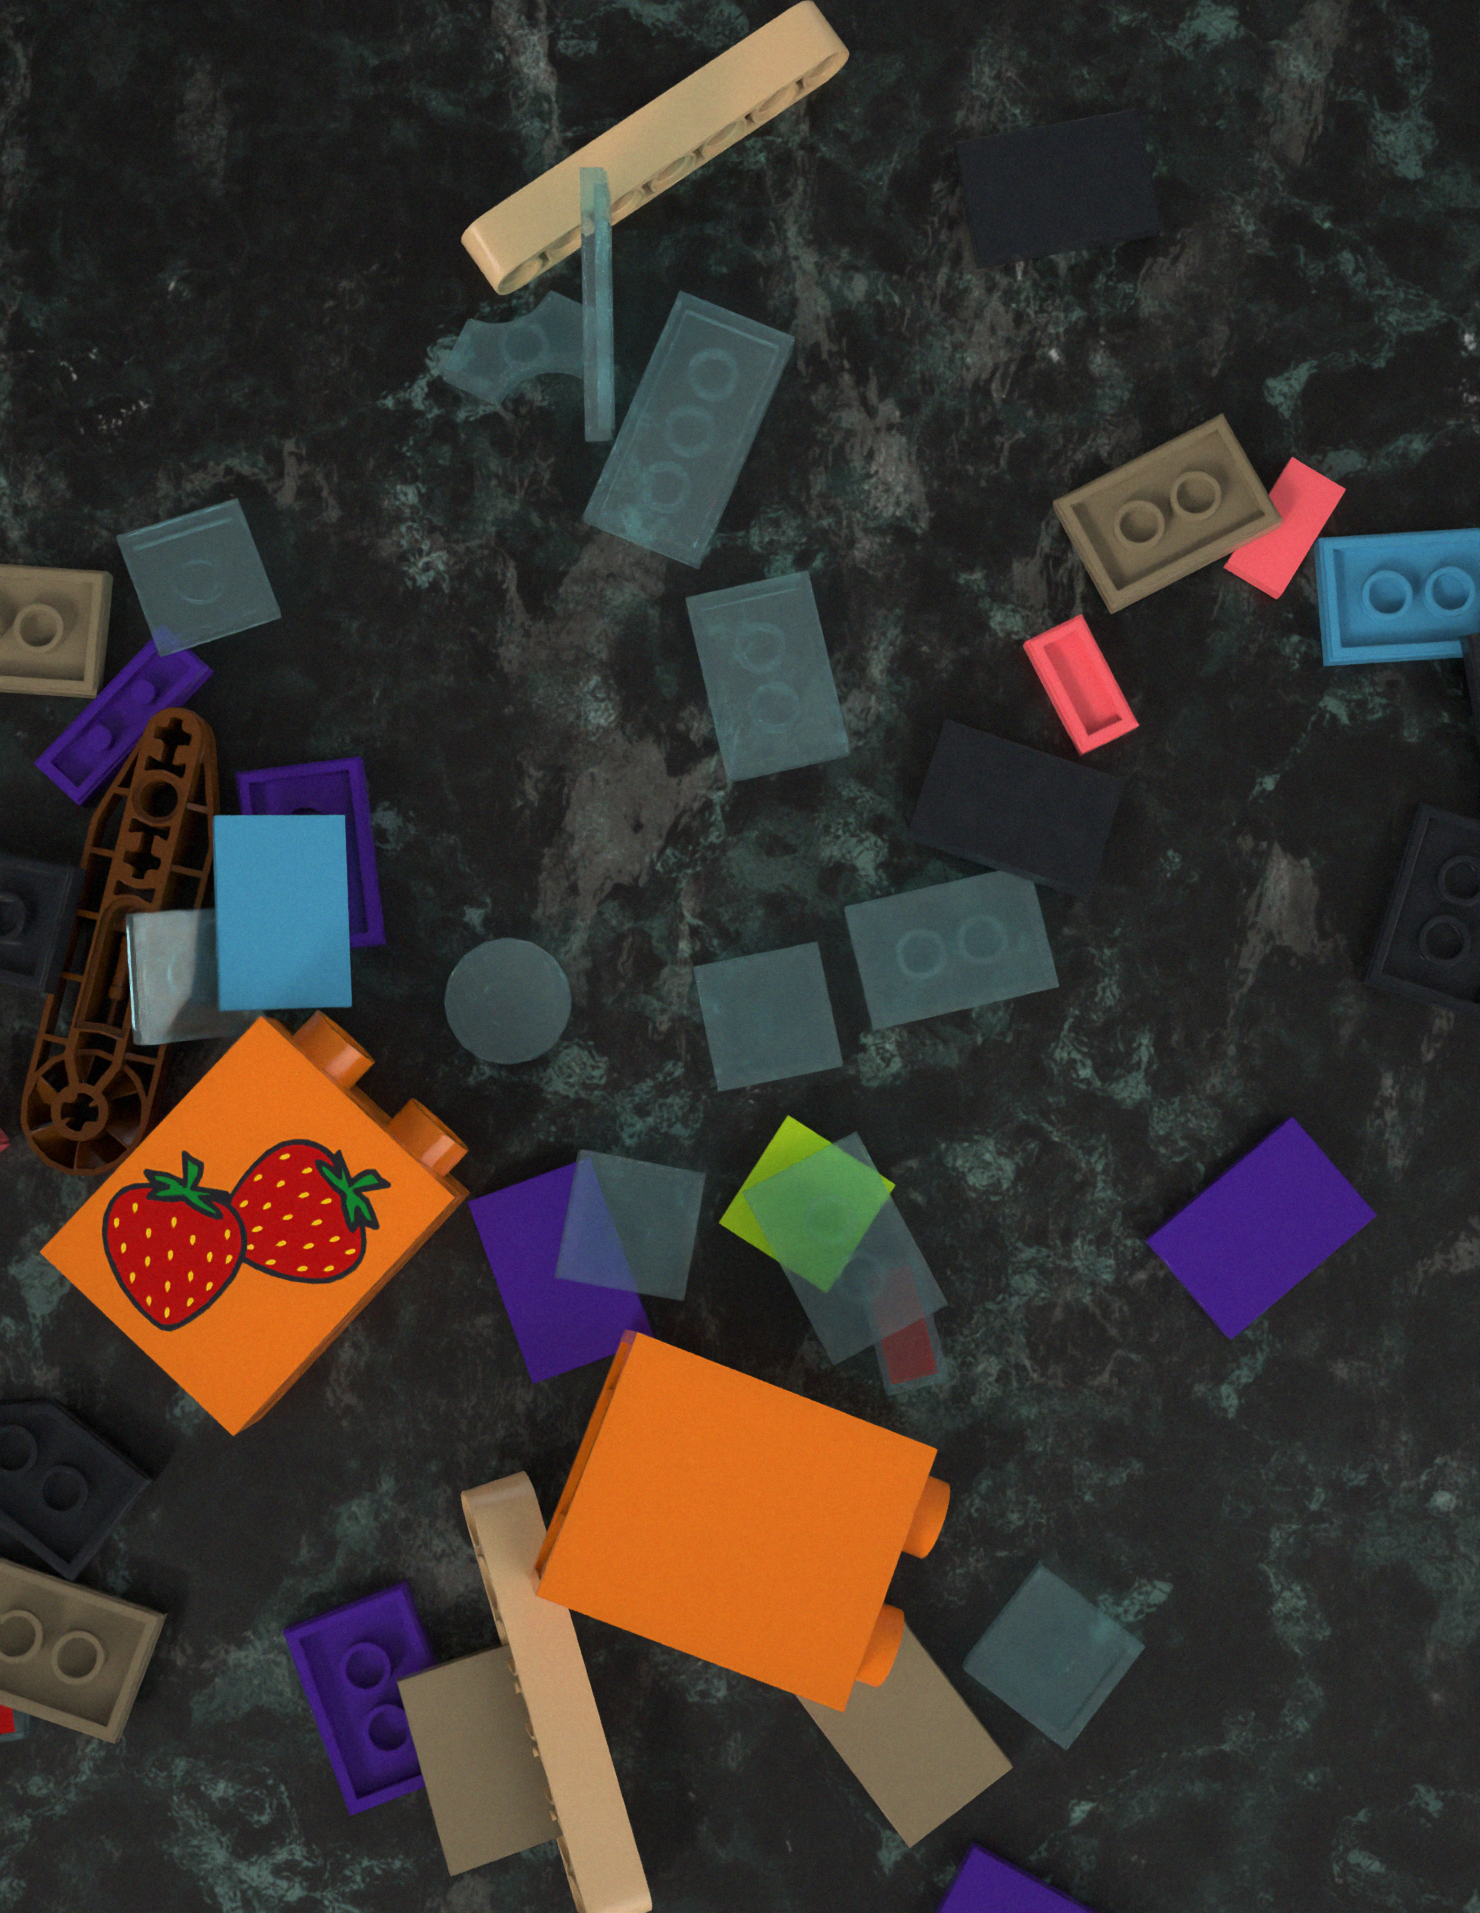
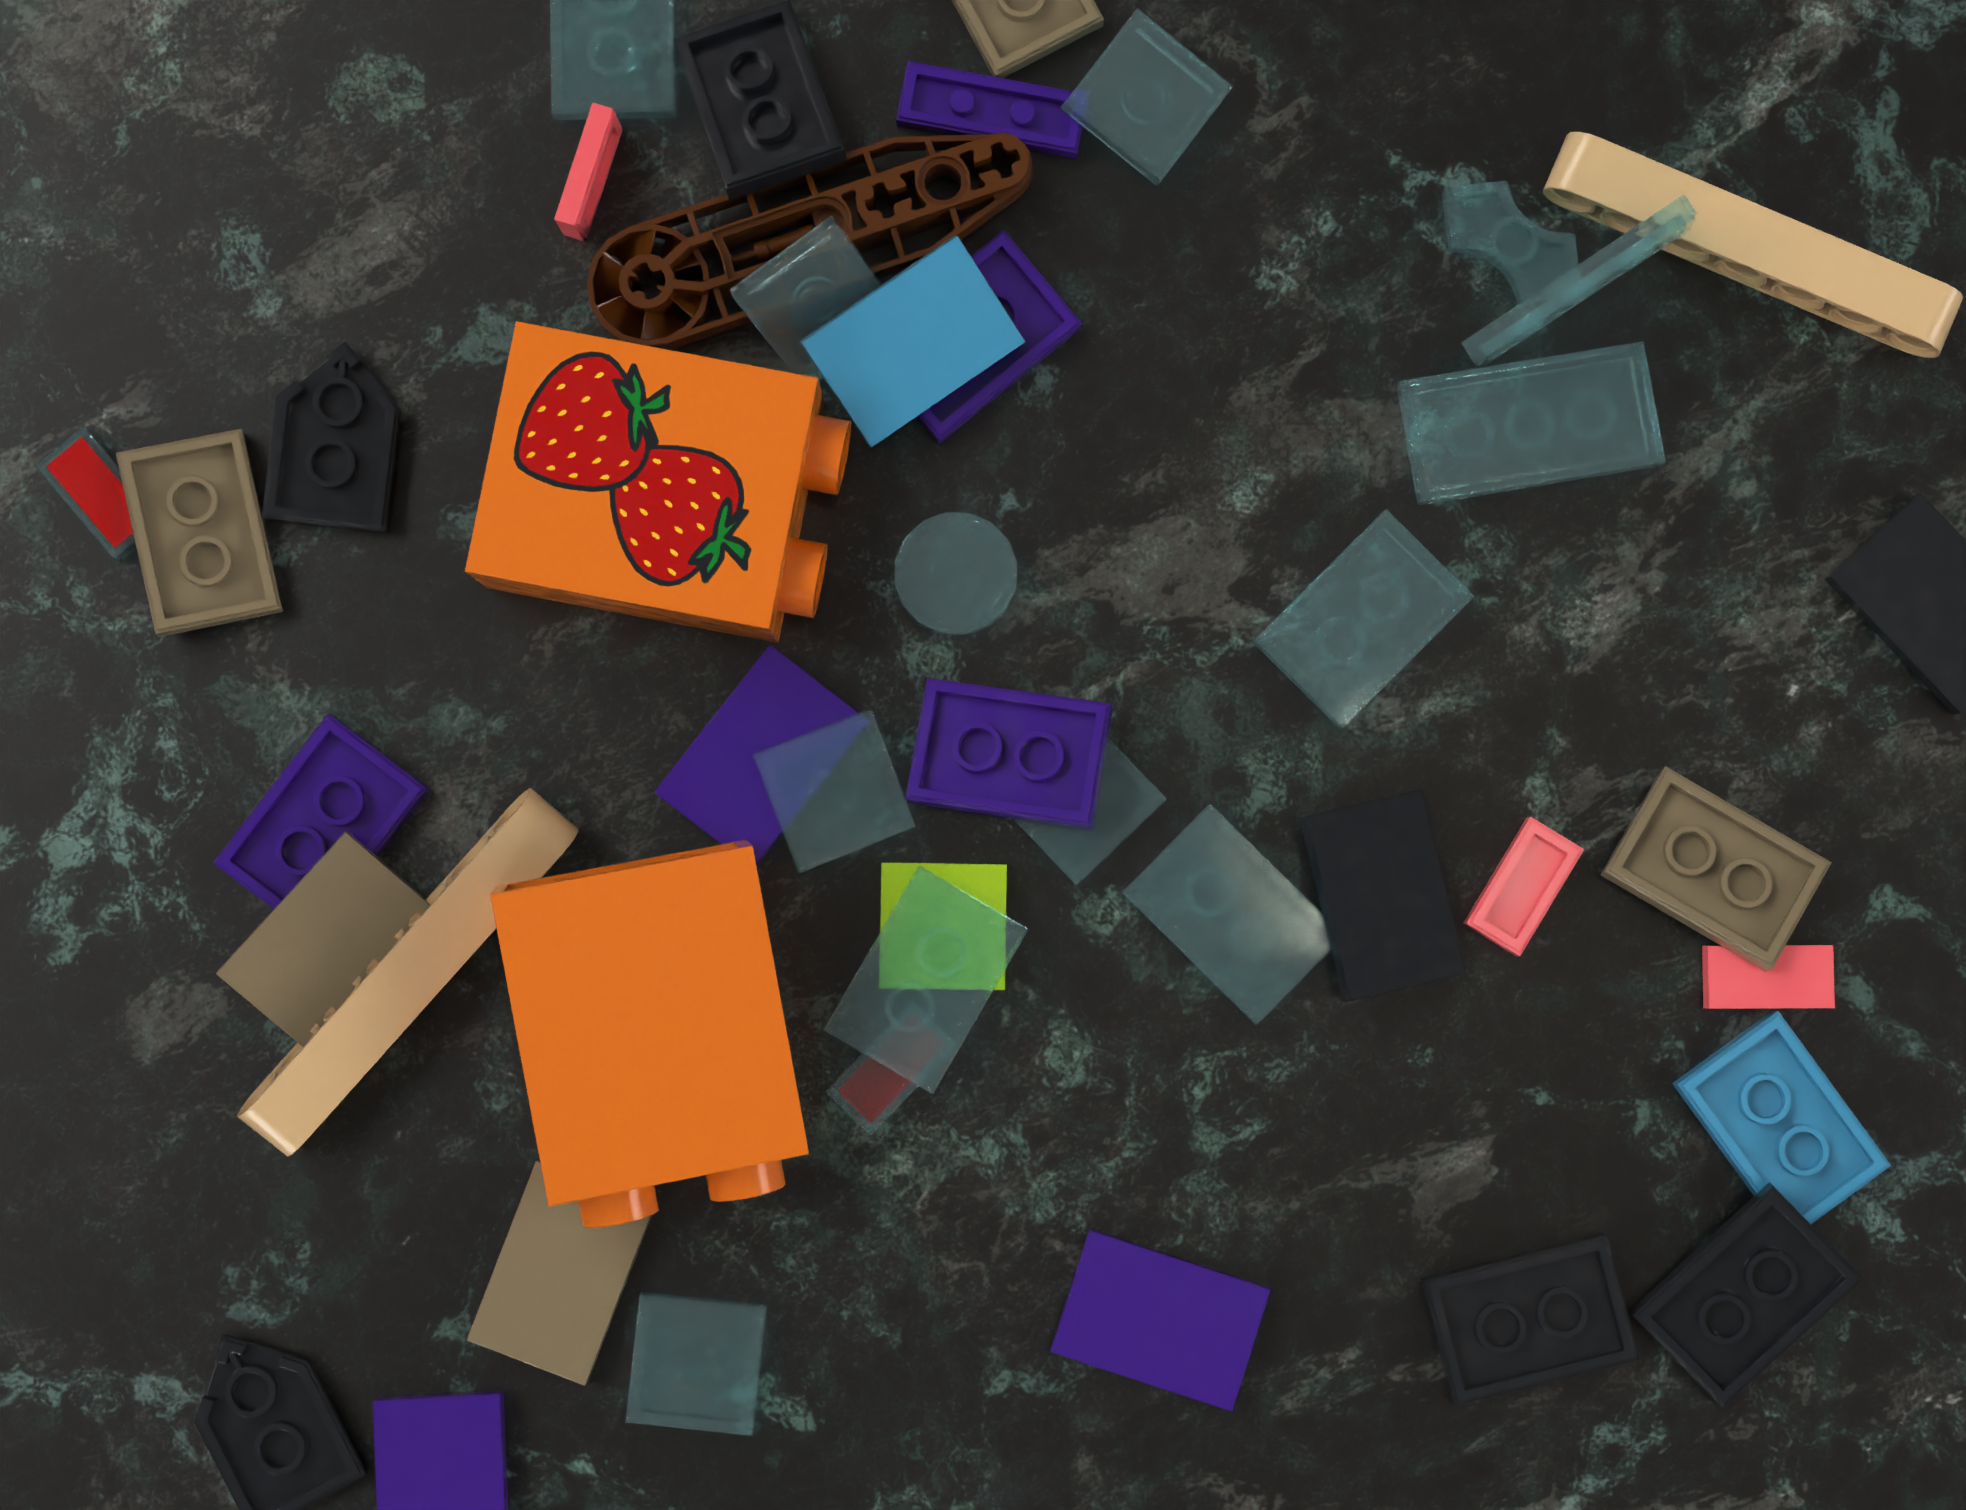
camera: 55 degrees right, 0 degrees up
(693, 1052) = (1009, 753): none -> dark purple tile

